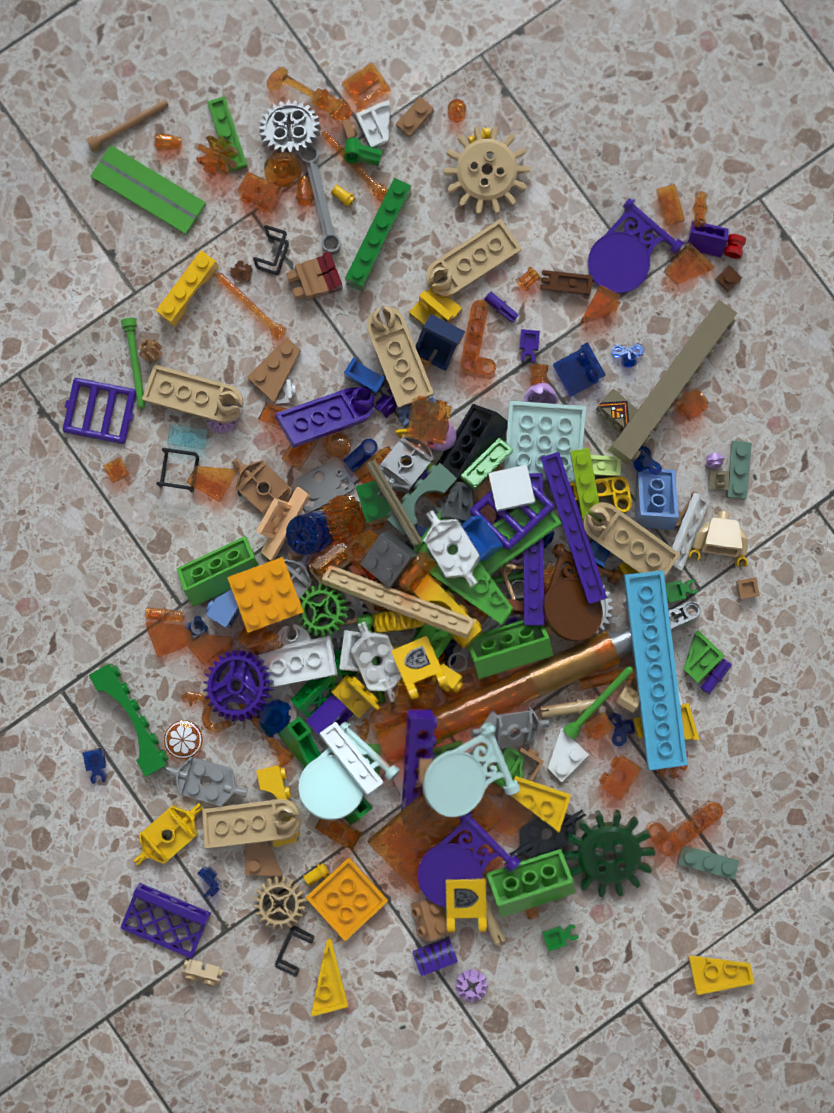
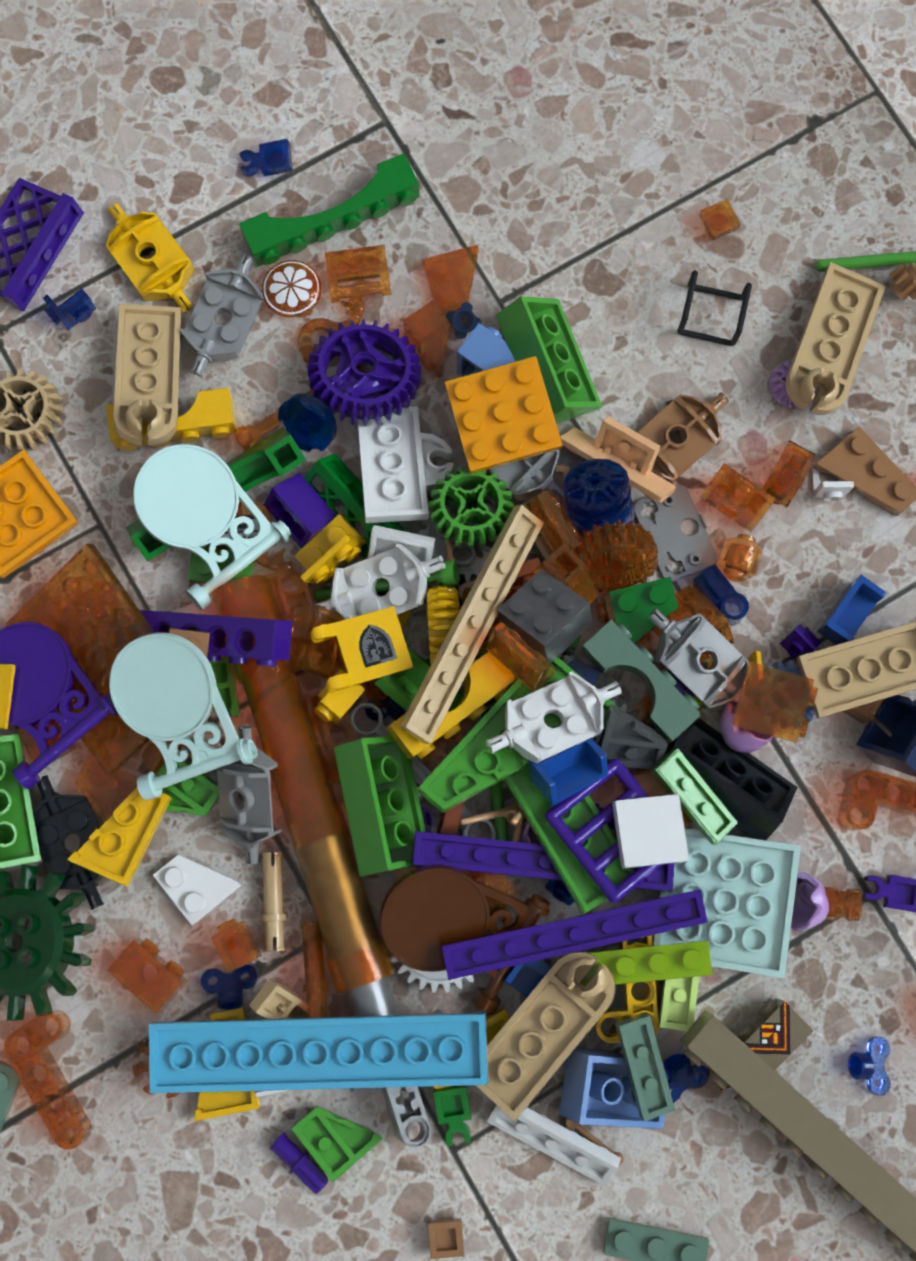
camera: 100 degrees right, 5 degrees down
(85, 430) = (845, 225): dark purple bar -> none
(164, 614) = (487, 274): clear orange axle -> none
(165, 698) = (357, 265): none -> clear orange plate
(187, 437) = (766, 328): clear light blue plate -> none
(212, 480) = (693, 360): clear orange wing -> none
(259, 640) = (431, 409): clear orange slope -> none
(261, 860) = (89, 390): medium nougat wing -> none
(316, 874) = (60, 475): yellow pin -> none
(326, 415) = (790, 540): dark purple plate -> none
(339, 832) = (114, 511): clear orange slope -> none
(351, 759) = (227, 531): white plate -> none
(394, 503) = (637, 632): dark tan axle -> none
(534, 755) = (200, 832): medium nougat bracket -> none
(572, 729) = (237, 903): bright green piece -> none
(579, 370) = (846, 975): clear blue bracket -> none
(642, 482) = (645, 1066): none -> sand green plate
(692, 404) = (778, 1172): clear orange brick -> none
(714, 460) = (675, 1202): lavender plate -> none
(718, 480) = (639, 1206): dark tan tile -> none
(722, 538) = (537, 1200): tan torso -> none

